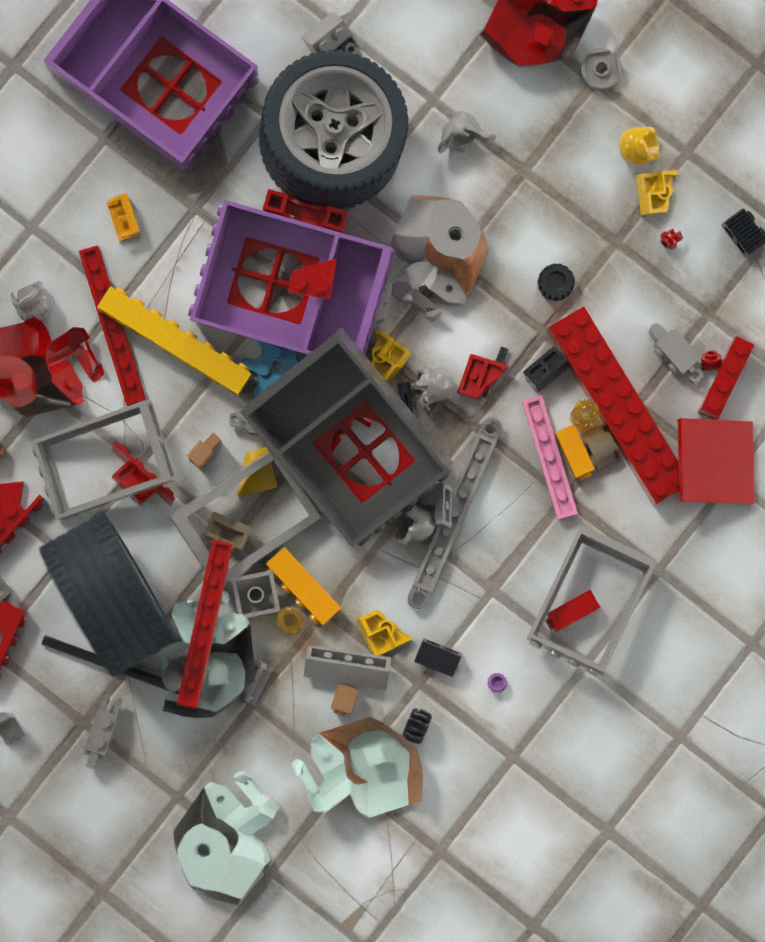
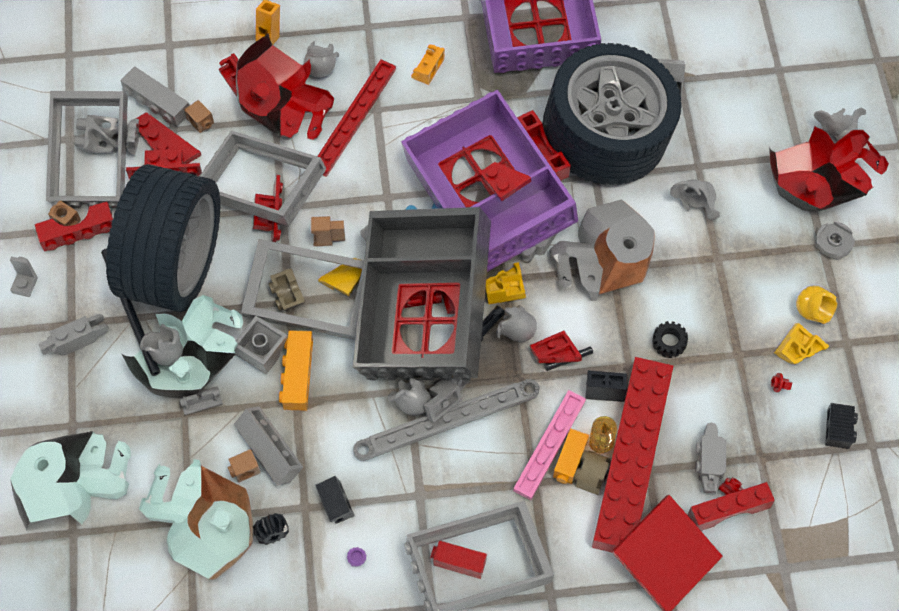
camera: 55 degrees right, 20 degrees down
(174, 341) = (379, 149): yellow brick -> none
(205, 624) = (205, 321): red tile -> none
(292, 628) = (263, 379): clear yellow piece -> none
(380, 633) = (315, 449): yellow slope -> none

